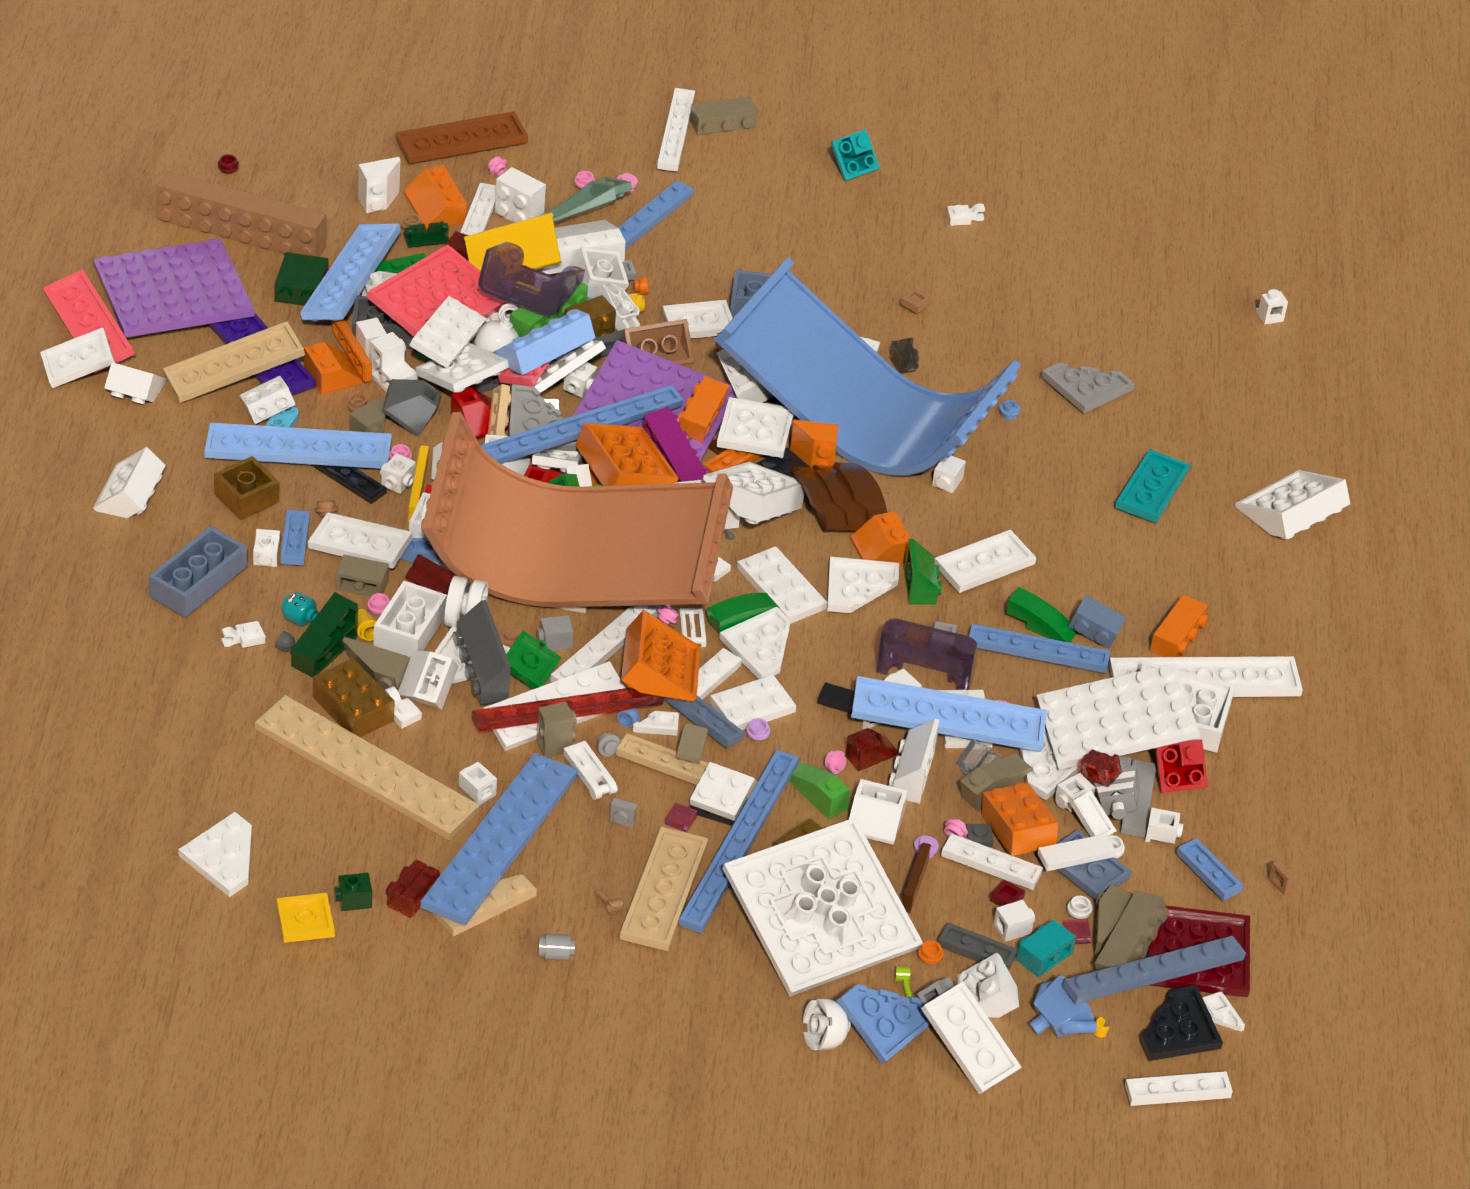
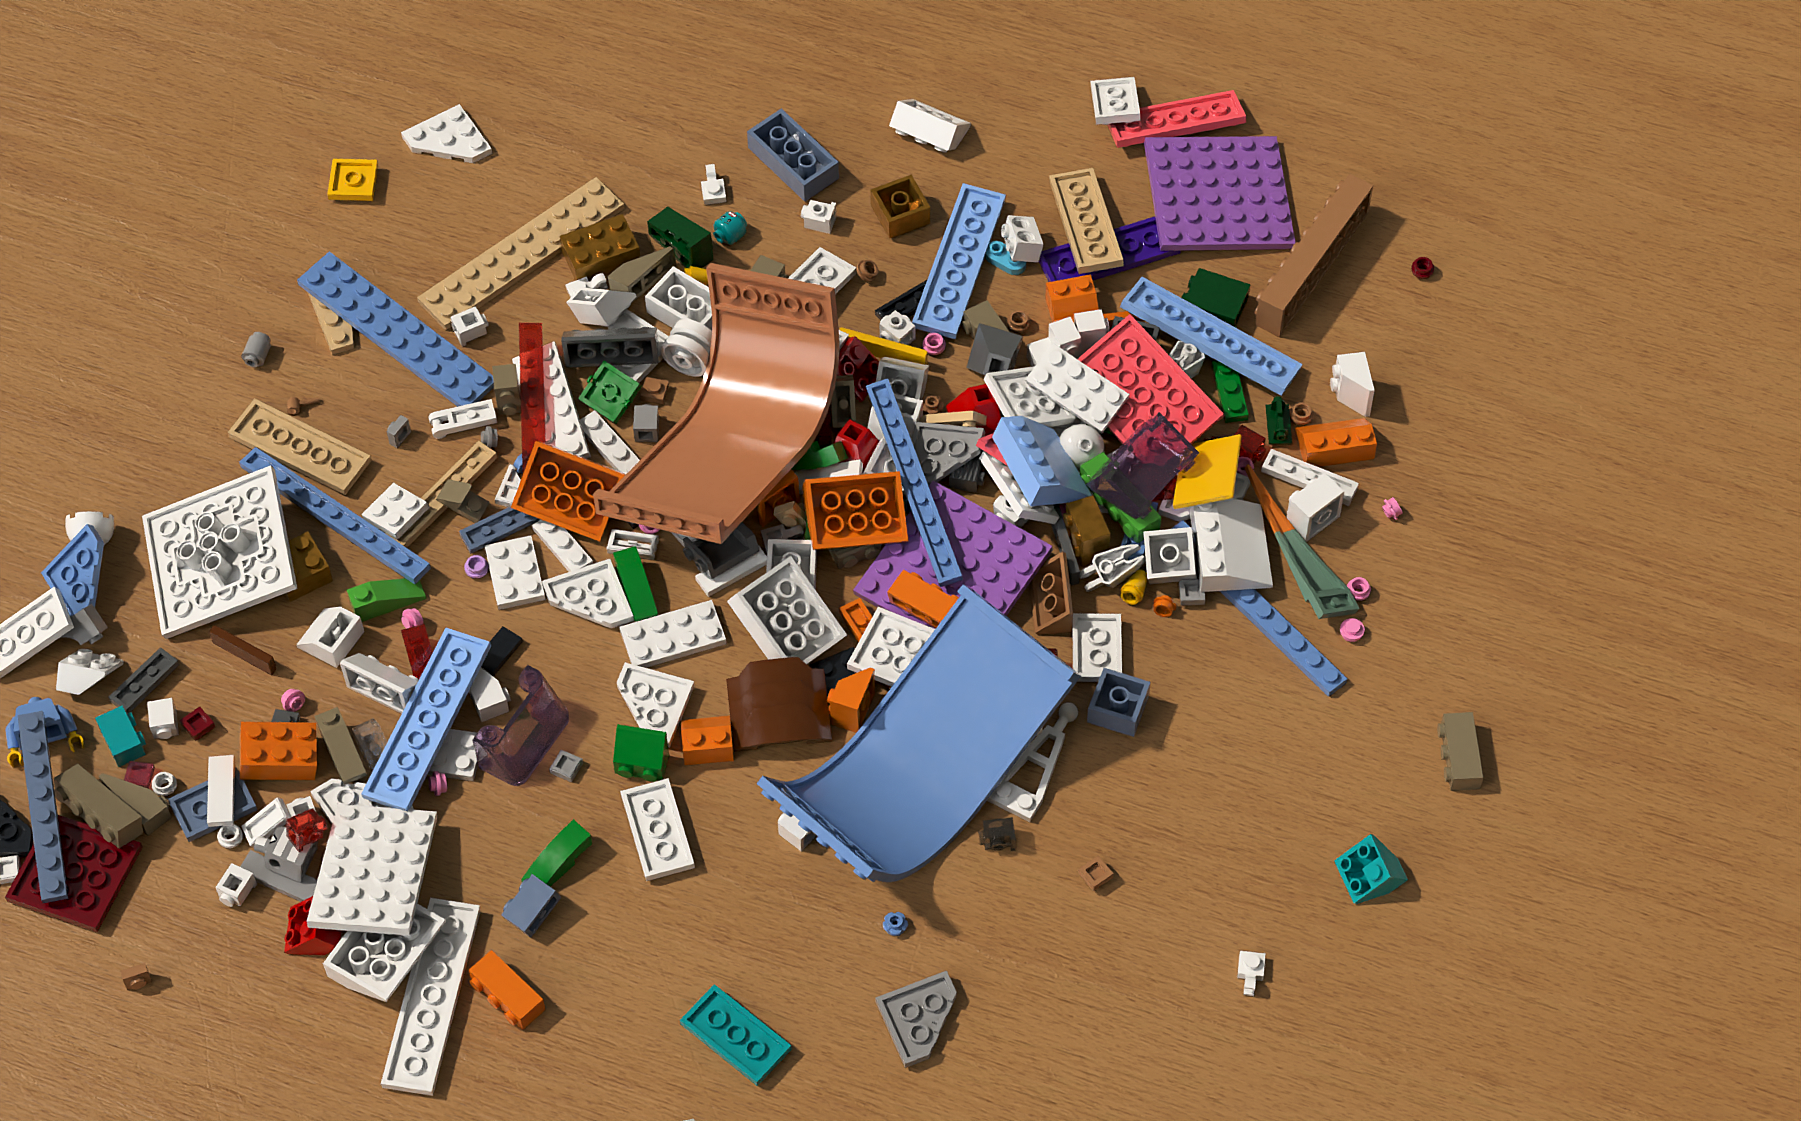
camera: 110 degrees right, 15 degrees up
(134, 383) = (1078, 144): white slope -> none
(285, 642) = (693, 213): dark grey hinge -> none
(295, 537) = (831, 240): medium blue plate -> none
(354, 892) = (368, 216): dark green brick -> none
(411, 887) = (359, 256): clear red brick -> none
(461, 137) = (1447, 484): dark orange plate -> none
(674, 444) = (867, 564): magenta brick -> none
(676, 130) = (1442, 697): white plate -> none
(681, 817) = (384, 479): clear pink tile -> none
(903, 975) = (135, 613): lime hand -> none
(927, 839) = (284, 672): lavender plate -> none
(930, 952) = (152, 641): orange plate -> none
(992, 861) = (255, 709): white plate -> none
(1040, 648) = (516, 845): medium blue plate -> none
(1209, 869) = (170, 914): medium blue plate -> none

